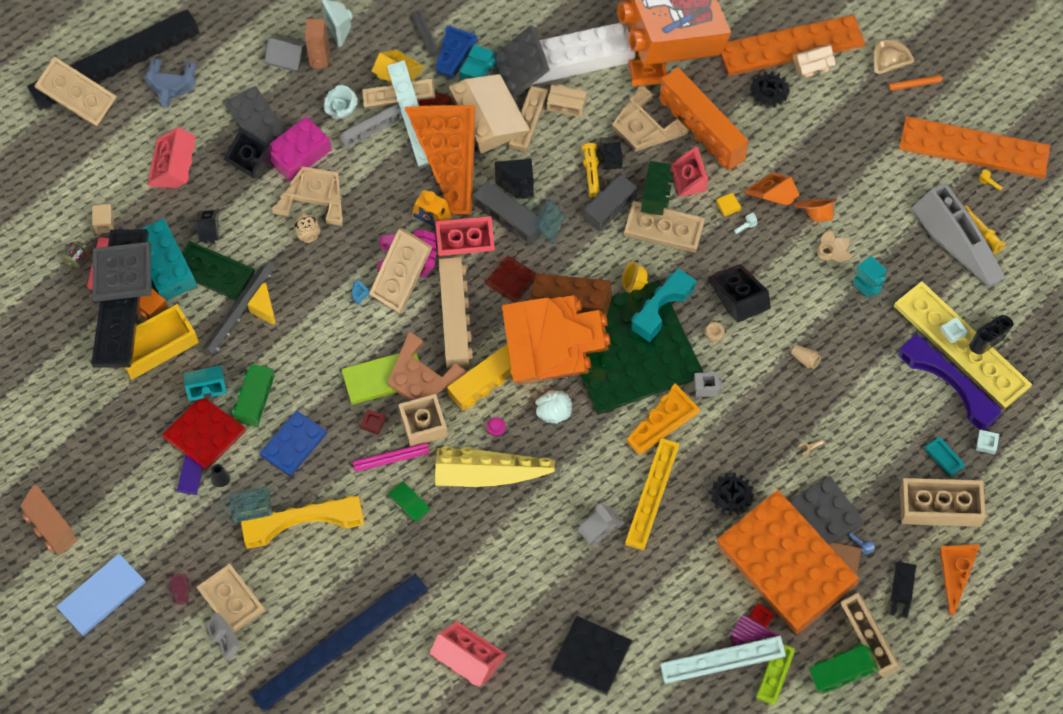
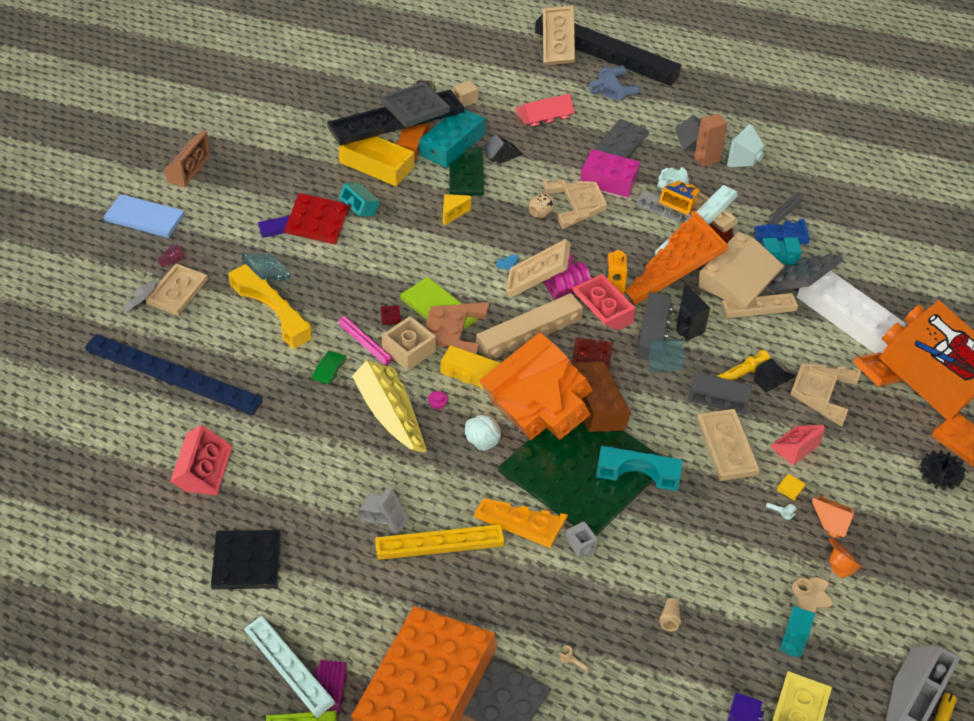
camera: 60 degrees right, 15 degrees down
(219, 476) = (282, 240): black cone -> none
(234, 314) = (433, 194): dark grey plate -> none
(249, 154) = (577, 144): black slope -> none
(253, 395) = (368, 233): green brick -> none
(293, 443) = (341, 275): blue plate -> none
(376, 107) = (680, 196): none -> light orange torso
(391, 57) = (743, 205): yellow slope -> none
(567, 100) = (799, 323): tan brick -> none
(634, 277) = (653, 438): yellow piece -> none
(657, 188) = (759, 418): dark green brick -> none
(703, 119) = (859, 425): orange brick -> none
(714, 332) = (646, 528): tan tile -> none
(740, 293) = (700, 531): black slope -> none
(741, 492) = (475, 609): black gear -> none
(761, 615) = (356, 686): red tile -> none

